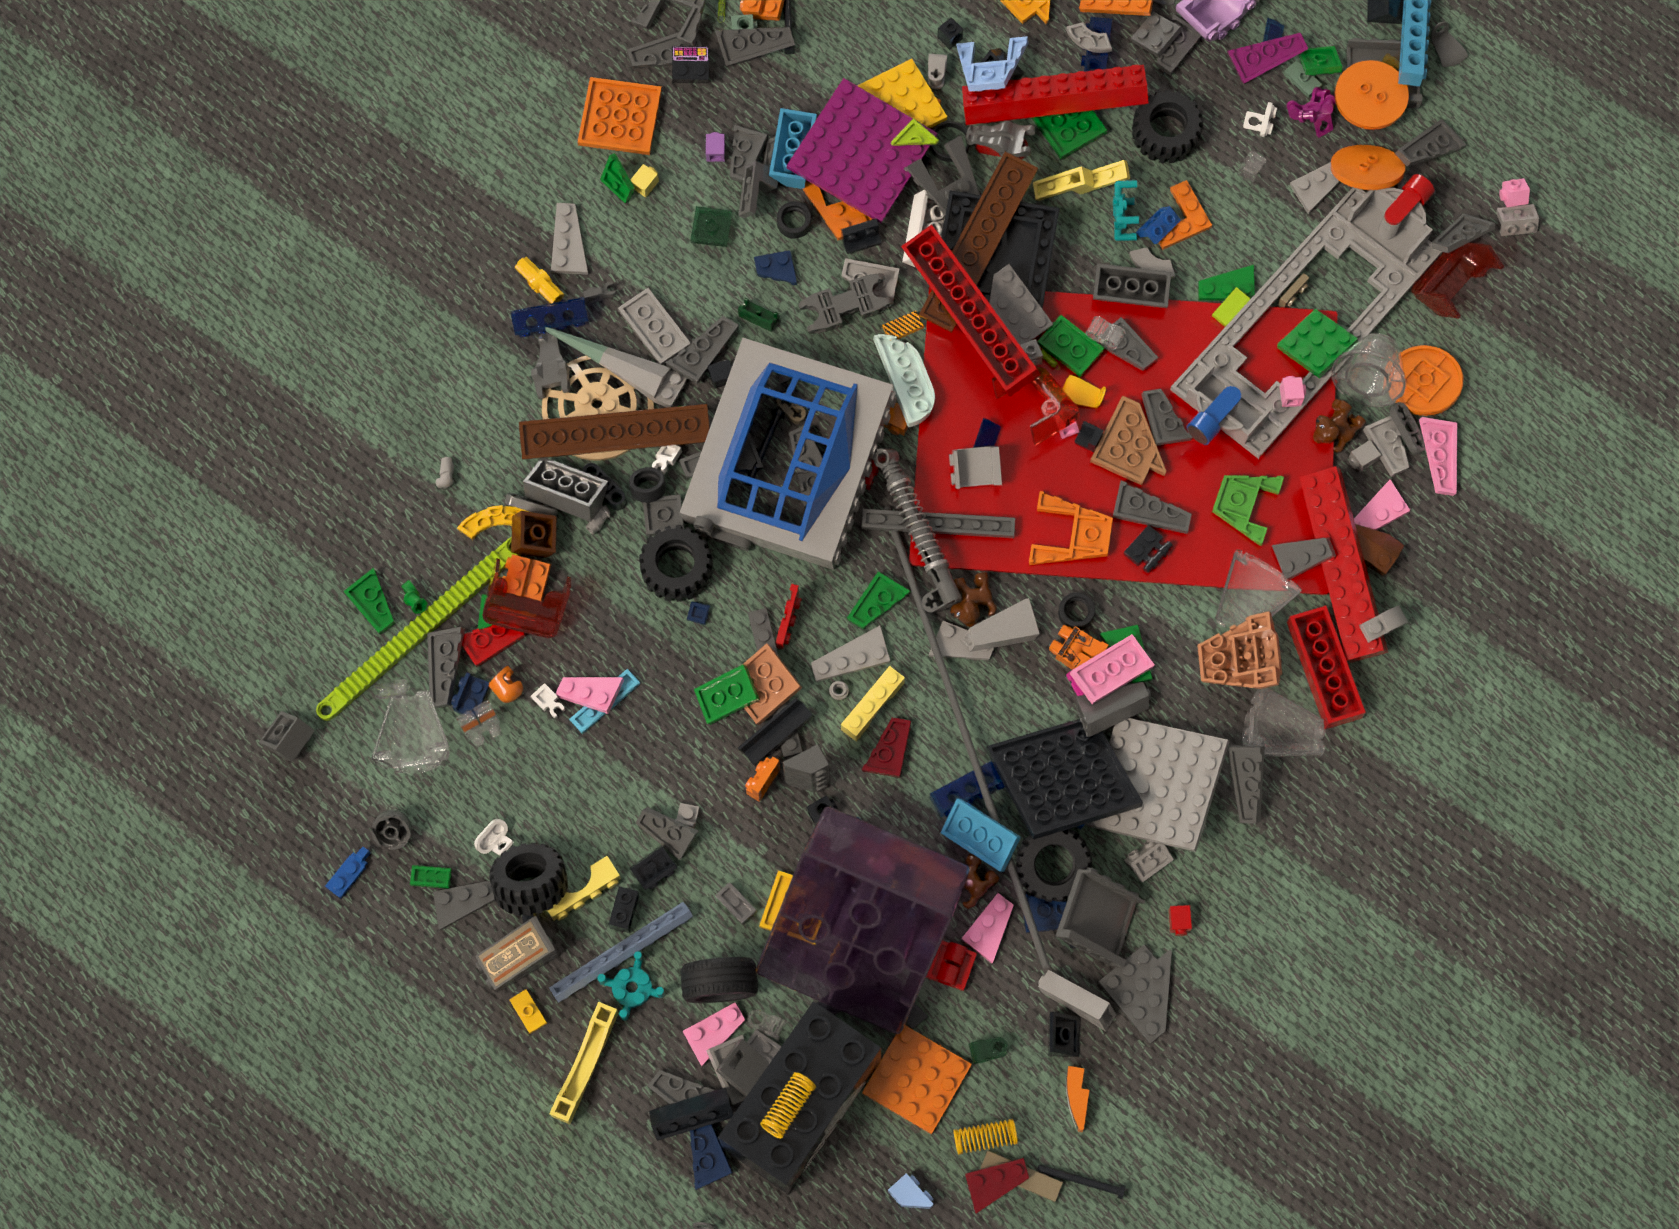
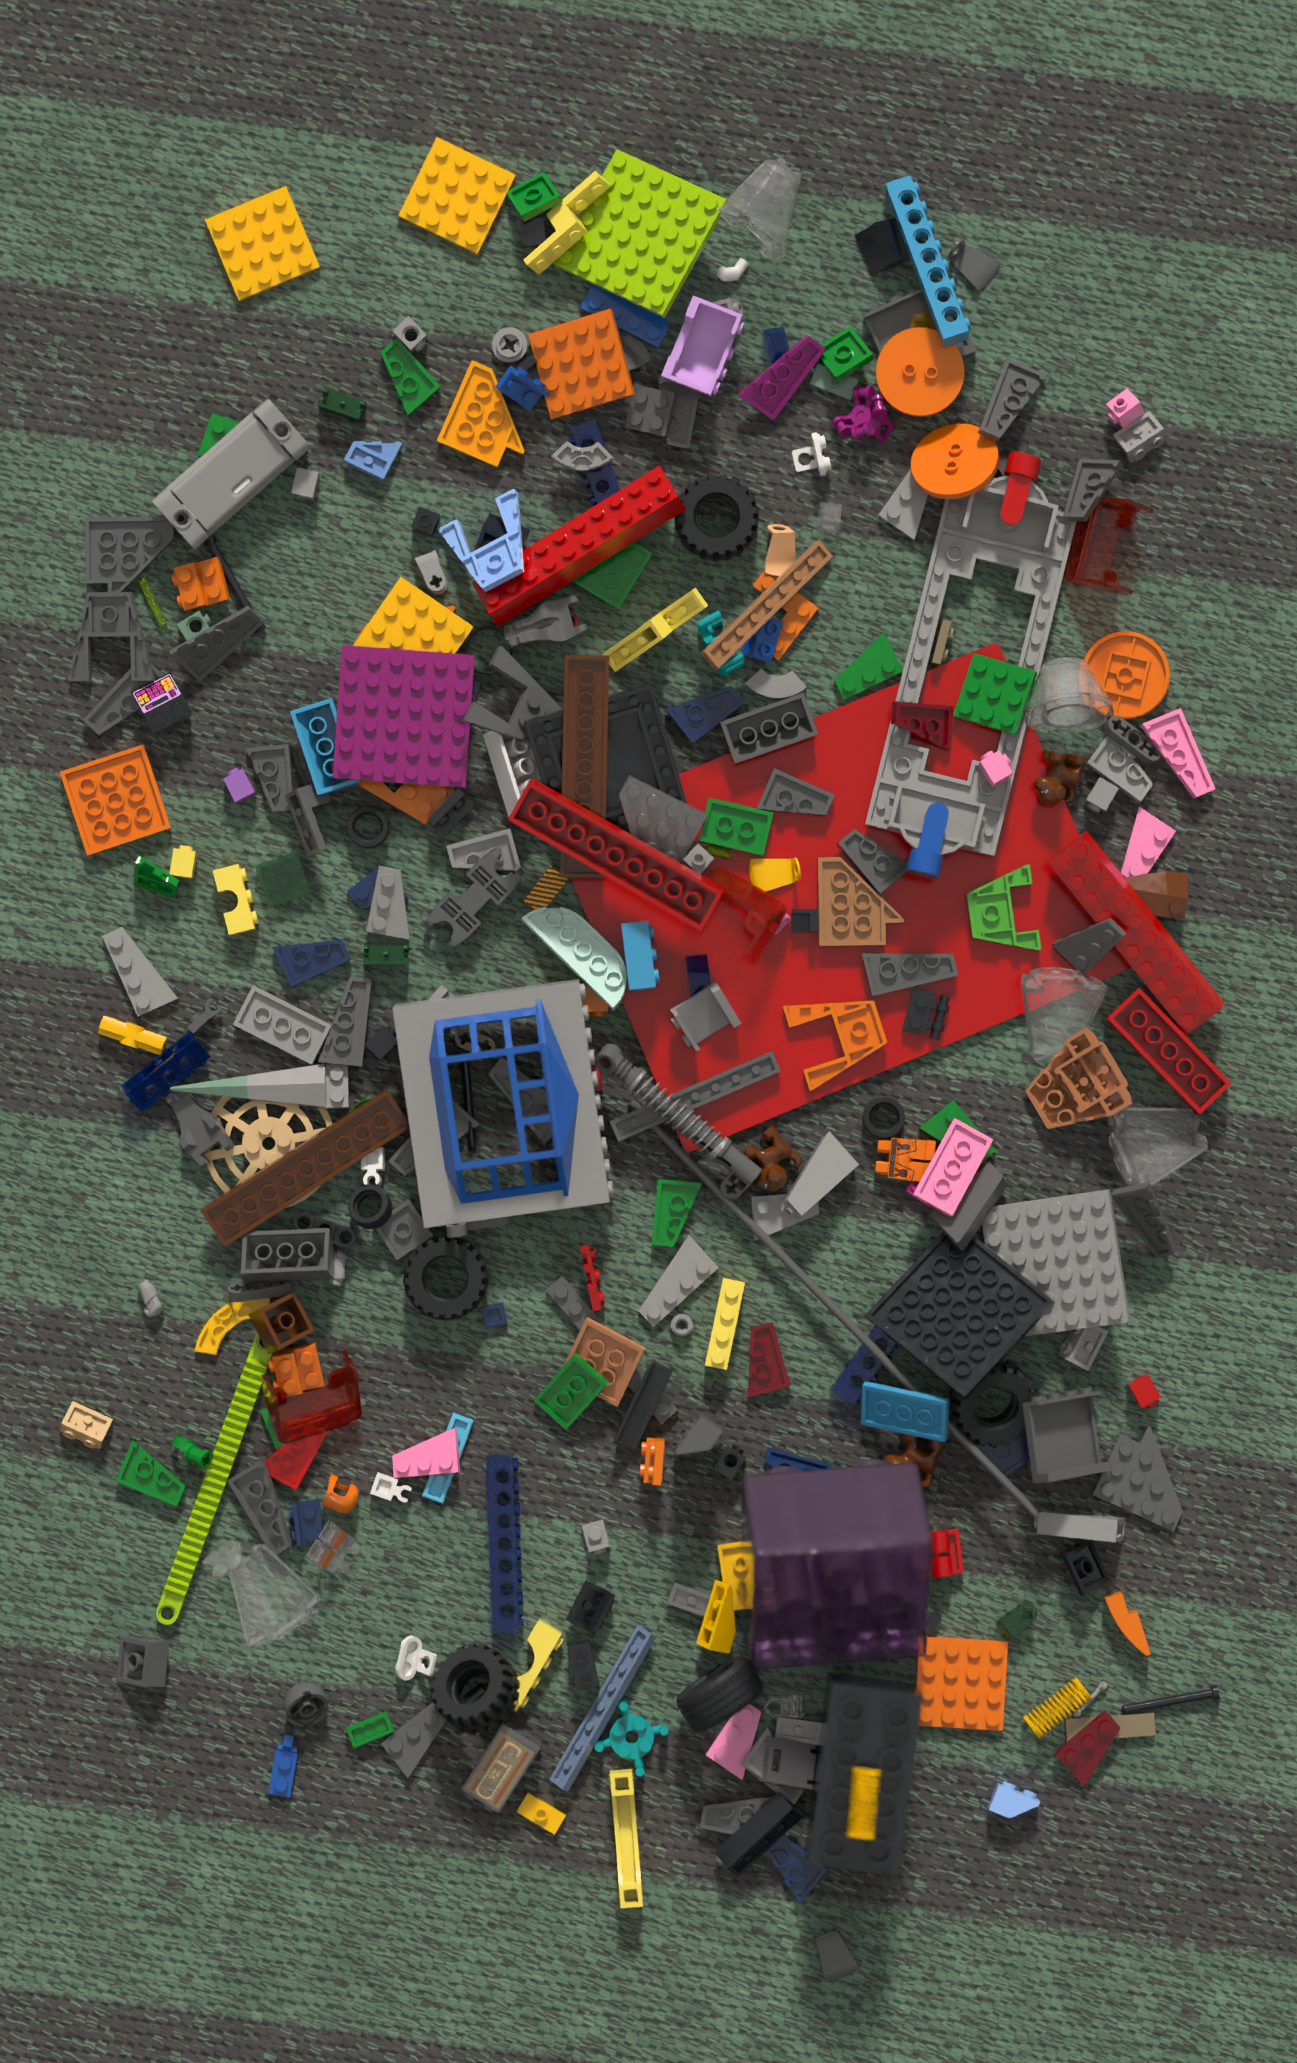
camera: 30 degrees left, 15 degrees up
(344, 540) = (85, 1425): none -> tan bracket
(638, 722) = (501, 1623): none -> clear blue brick
(665, 237) = (242, 917): none -> light yellow arch
(668, 832) = (584, 1563): dark grey wing -> none
(696, 291) = (309, 960): none -> dark blue wing
(747, 930) = (719, 1621): none -> yellow slope
(778, 280) = (387, 907): none -> light grey wing
(914, 134) = (451, 673): lime tile -> none
(949, 399) = (640, 956): none -> dark azure brick
(989, 927) = (957, 1494): bright pink wing -> none
(999, 1151) = (1102, 1686): none -> light grey hinge
(1084, 258) = (706, 712): none -> dark blue wing
(1105, 332) = (767, 798): clear axle -> none
(1174, 197) = (766, 604): none -> medium nougat plate
(1203, 175) = (781, 550): none -> light nougat piece
(1230, 307) = (883, 695): lime tile -> none
(1254, 336) = (925, 721): none -> dark red wing
(1383, 623) = (1213, 974): light grey arch -> none

